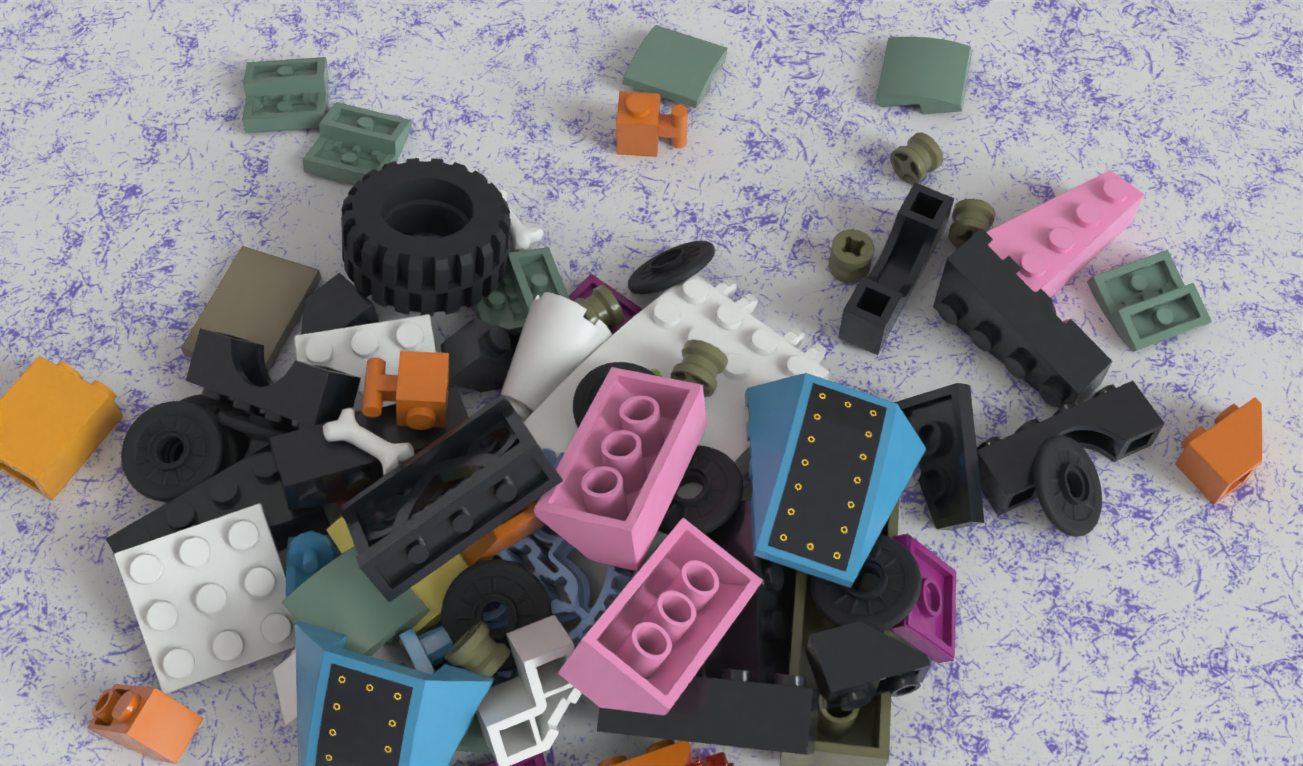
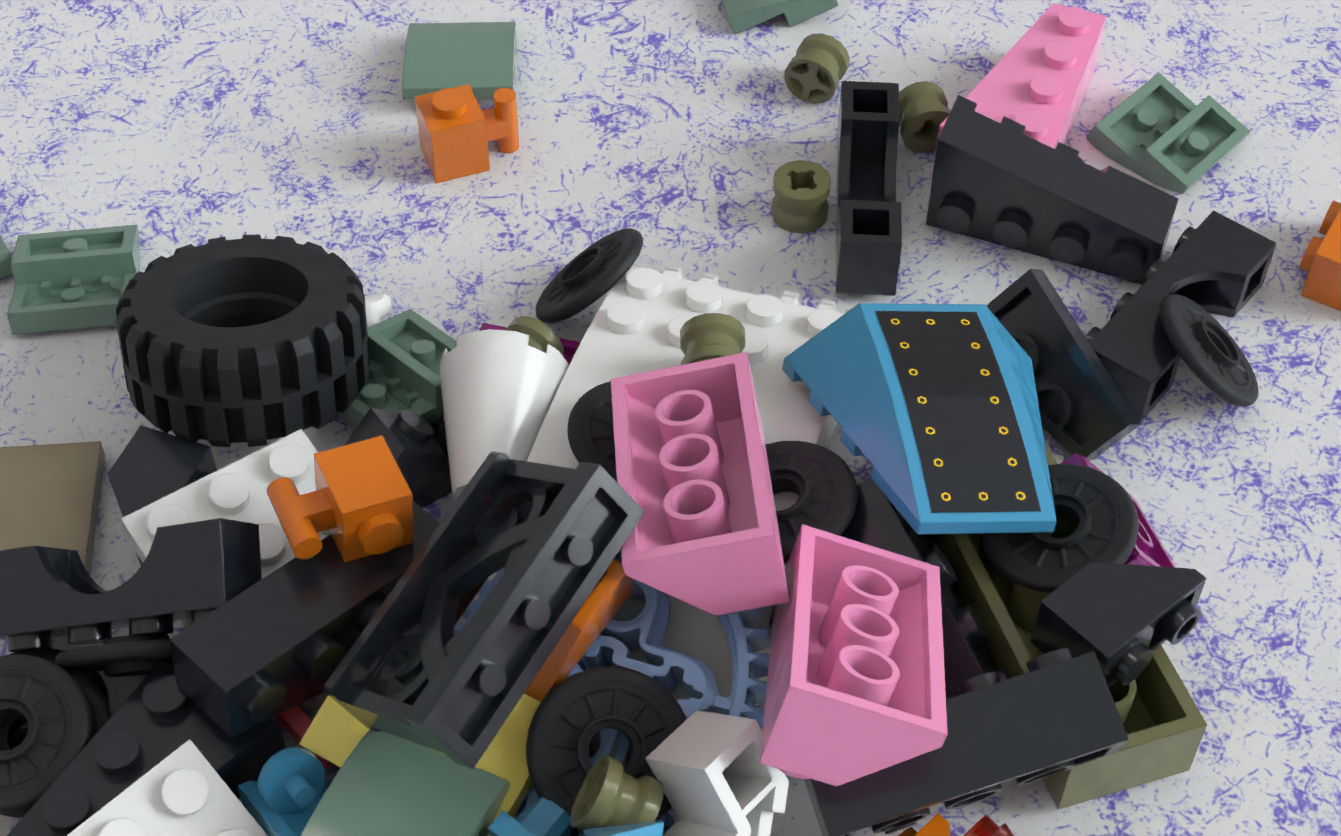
camera: 25 degrees left, 10 degrees down
(348, 430) = (284, 587): white piece -> none

